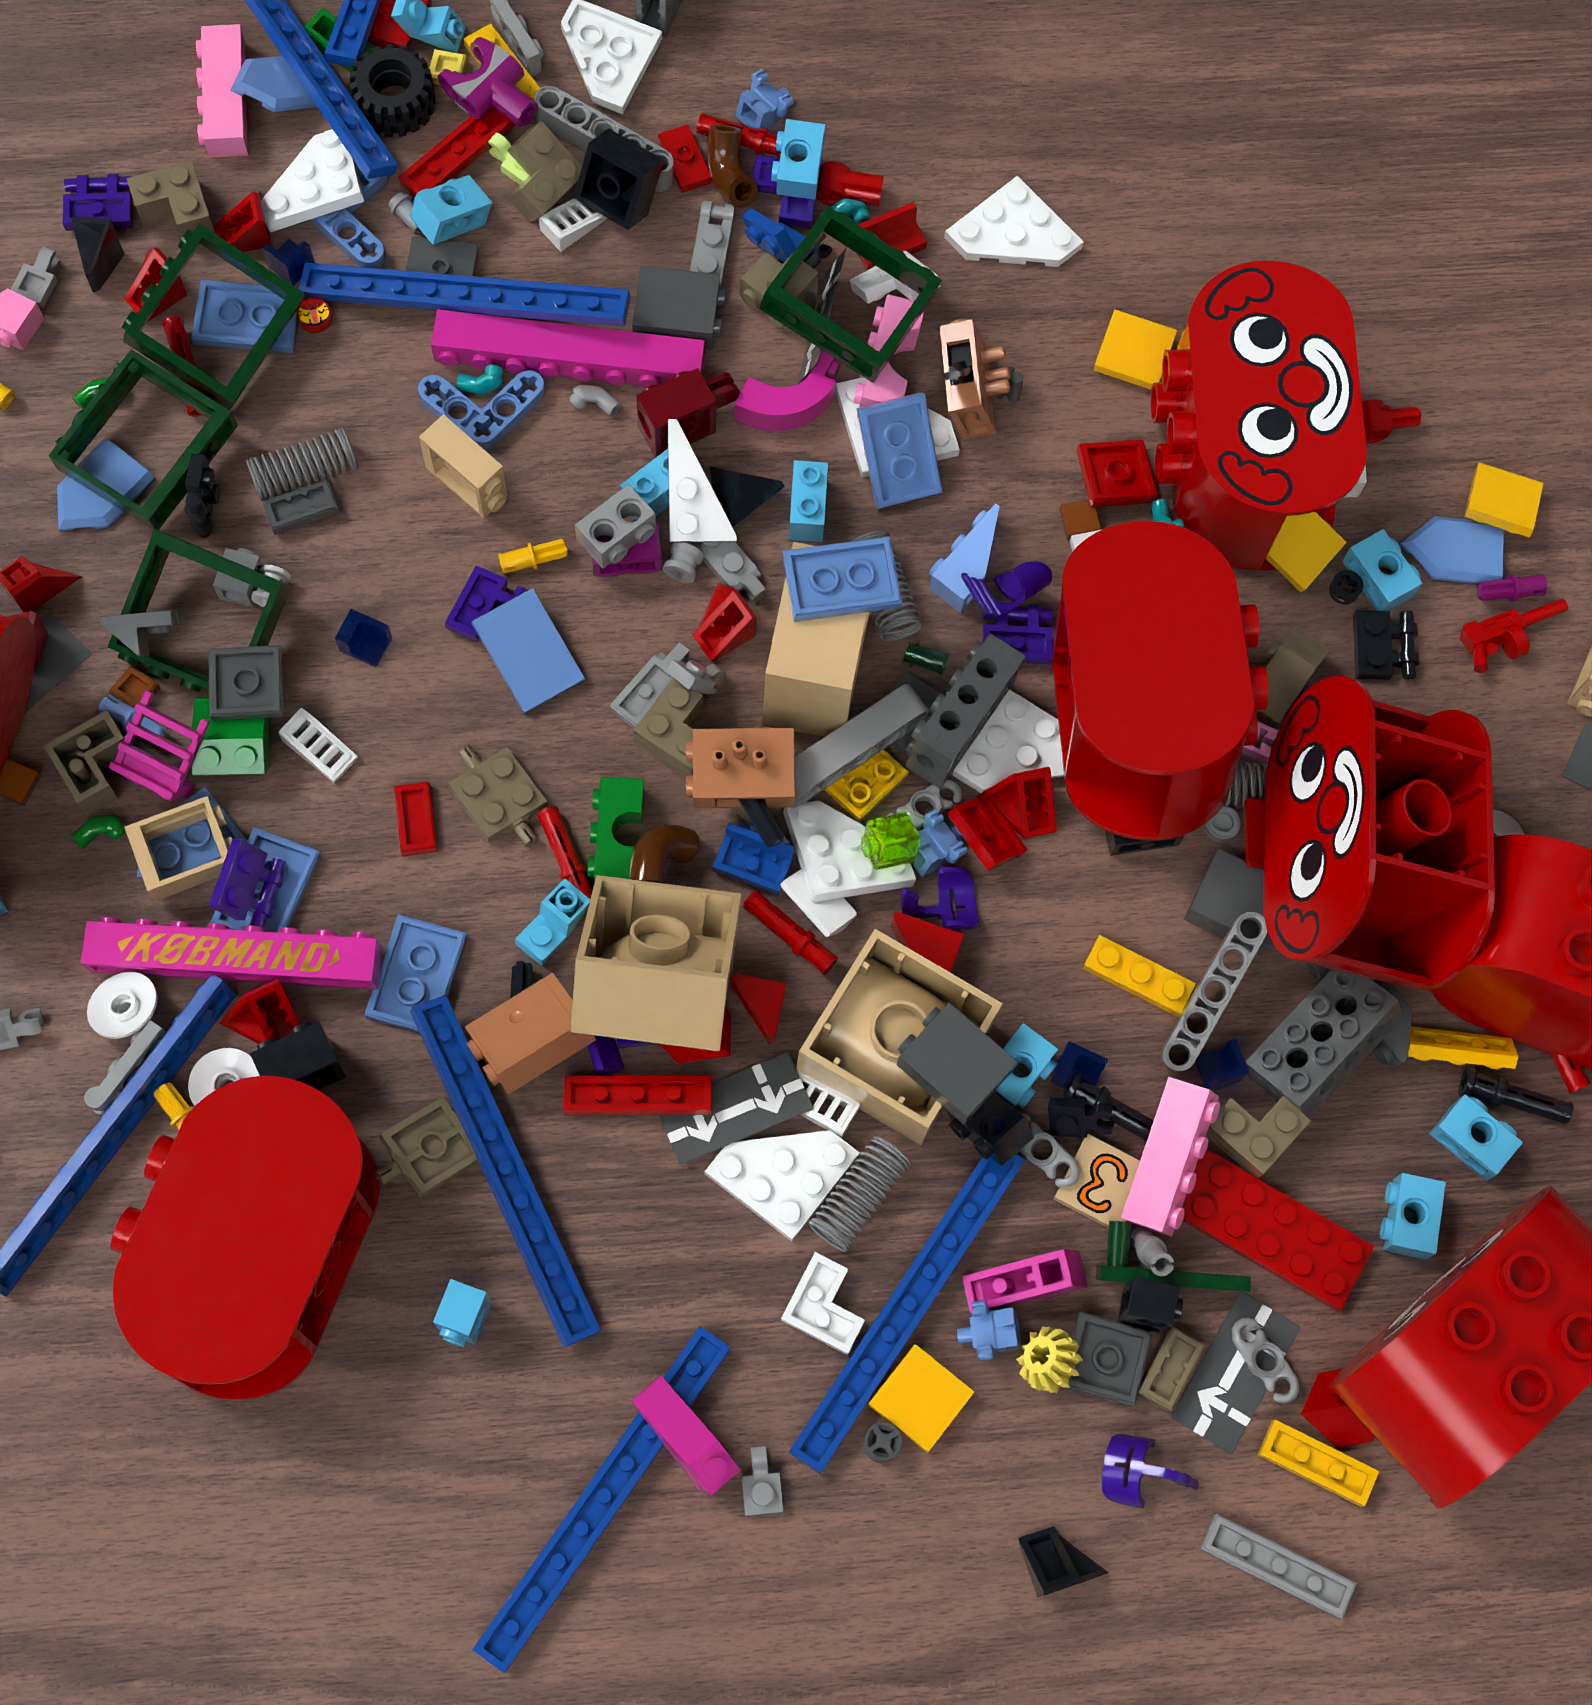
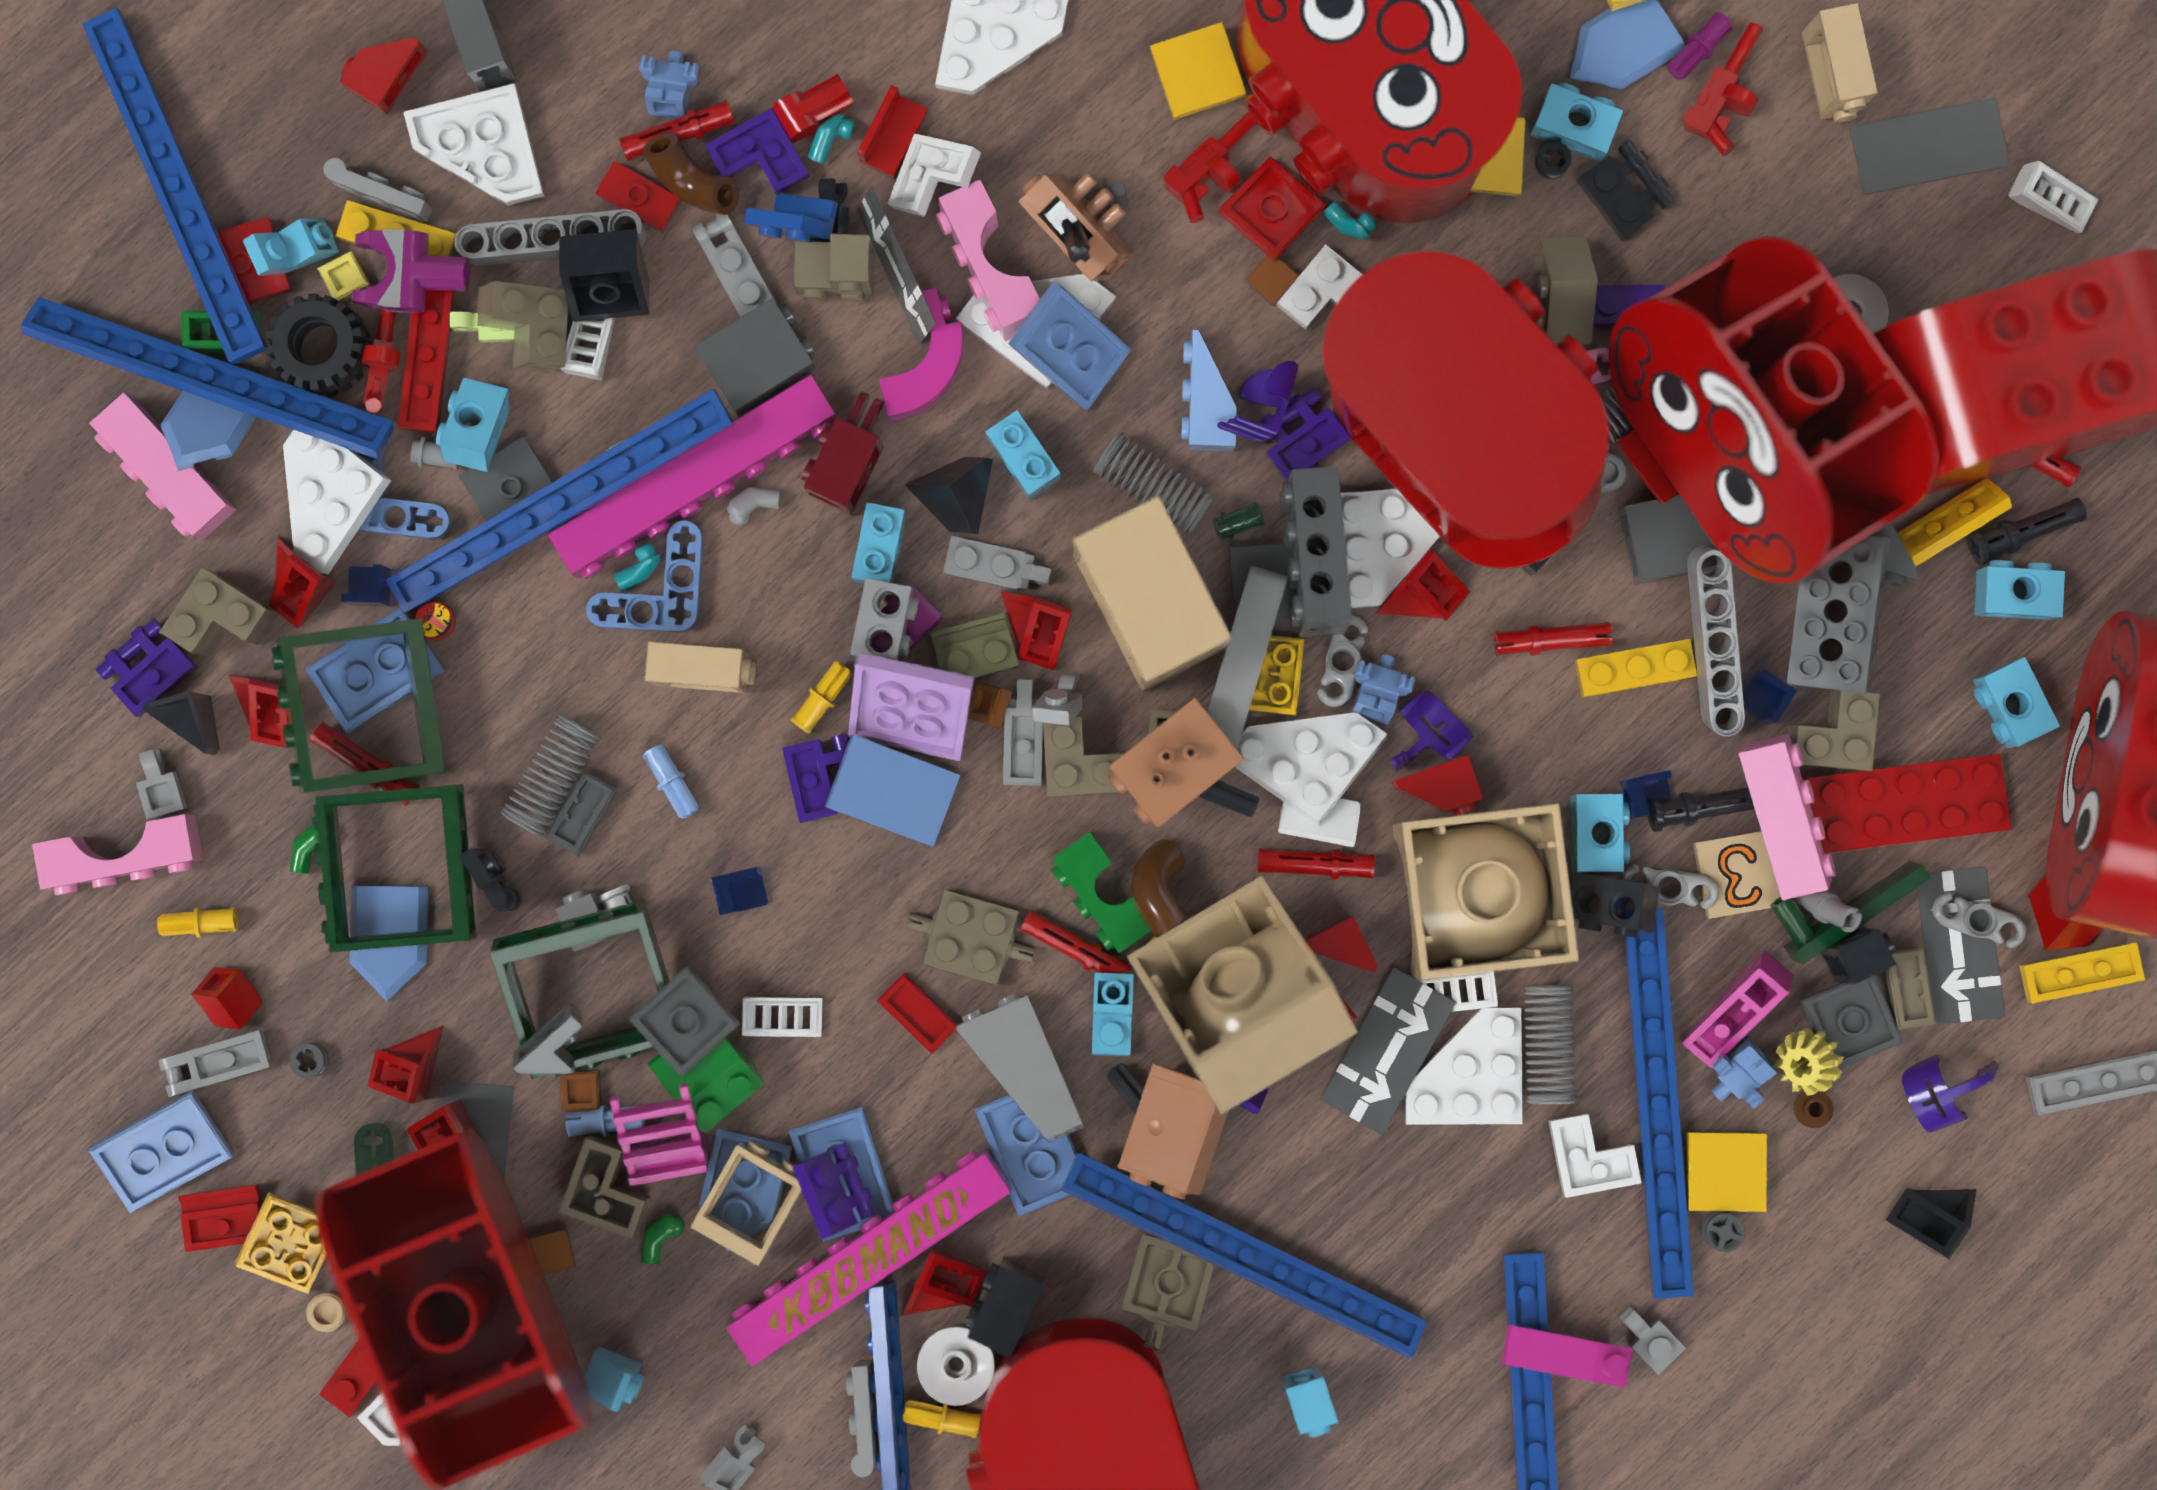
camera: 30 degrees left, 15 degrees up
(113, 997) = (798, 1371): white dish -> none
(380, 531) = (671, 781): none -> light blue axle
(424, 129) = (380, 359): none -> red piece
(461, 901) = (1021, 1060): none -> light grey slope
(588, 596) = (910, 706): none -> lavender plate
(637, 1095) = (1301, 1105): red plate -> none
(644, 646) = (989, 704): none -> dark orange tile
(666, 605) = (976, 647): none -> olive plate
(683, 562) = (959, 600): light grey wheel -> none
(693, 506) = (931, 546): white wing -> none
(750, 861) = (1228, 831): blue bracket -> none
(801, 140) = (750, 100): medium azure brick -> none
(826, 333) = (925, 296): dark green window -> none
(841, 579) = (1144, 542): medium blue tile -> none
(890, 841) = (1343, 722): clear neon green brick -> none
(955, 1062) = (1562, 891): dark grey brick -> none
(987, 832) = (1415, 643): red plate -> none
(1016, 1410) = (1802, 1114): none -> reddish brown plate
(1073, 1119) = (1679, 839): black plate -> none
(1092, 411) = (1207, 162): none -> red piece
(1092, 907) = (1555, 638): none -> red pin

